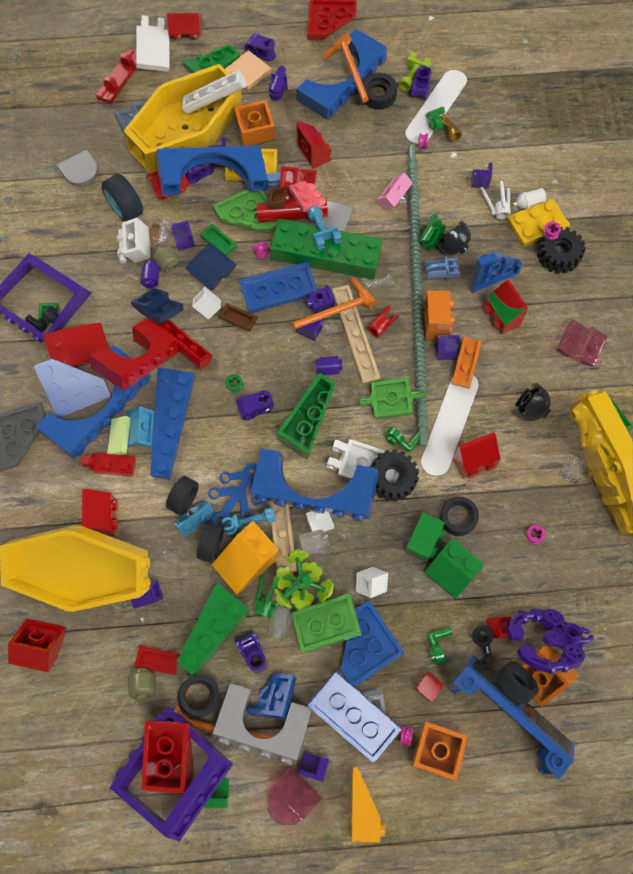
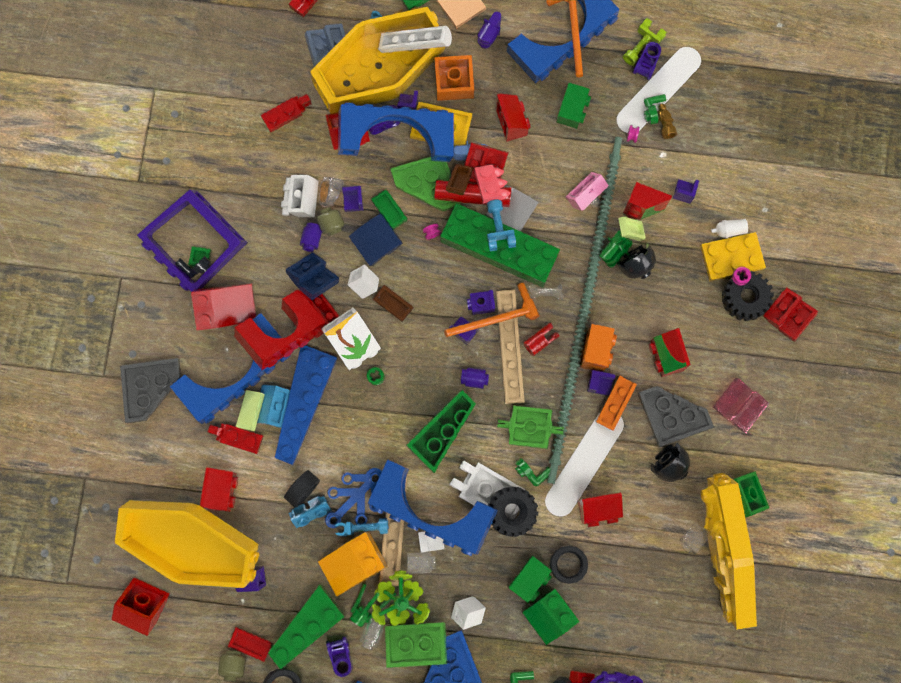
camera: 10 degrees right, 10 degrees up
(70, 387) = (210, 350): plate -> none
(79, 169) = (257, 93): light grey tile -> none
(94, 185) = (285, 112): none -> red hinge
(122, 197) = (296, 144): black wheel -> none
(205, 350) = (351, 339): none -> white panel
(210, 542) = (320, 542): black tyre -> none
(253, 405) = (387, 405): dark purple piece -> none
(278, 287) = (441, 278): blue plate -> none
(365, 128) = (573, 104): none -> green brick
(380, 80) = (607, 49): black tyre -> none
(442, 212) = (631, 228): none -> yellowish green tile
(443, 268) = (614, 291): medium blue arm -> none
(450, 188) = (645, 202): none -> red slope
(492, 270) = (663, 310): blue plate -> none
(502, 208) = (698, 233): white plant -> none
(522, 364) = (673, 416): none -> dark grey plate
(534, 540) = (637, 603): dark pink bush -> none
(603, 259) = (790, 314): none -> red slope

